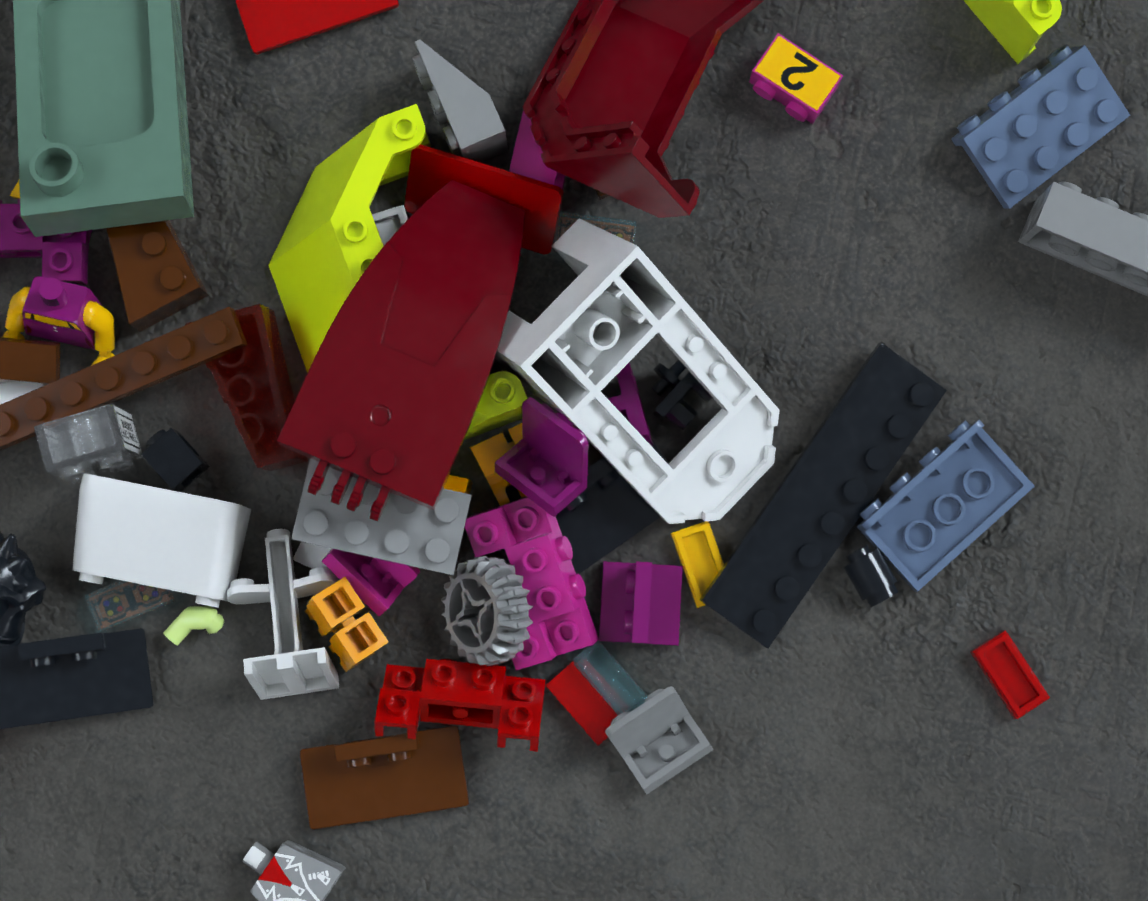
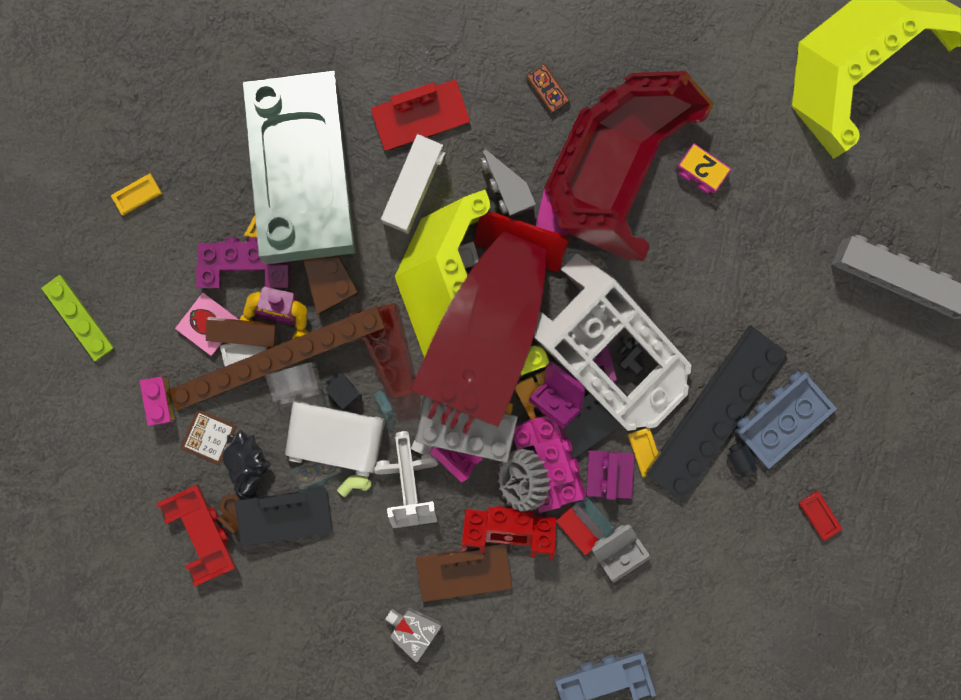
camera: 10 degrees left, 5 degrees up
(245, 478) = (383, 401): none -> clear light blue tile
(297, 104) = (413, 183): none -> white brick
(334, 612) = (449, 495): light orange legs -> none
(1041, 124) = (846, 196): sand blue bracket -> none

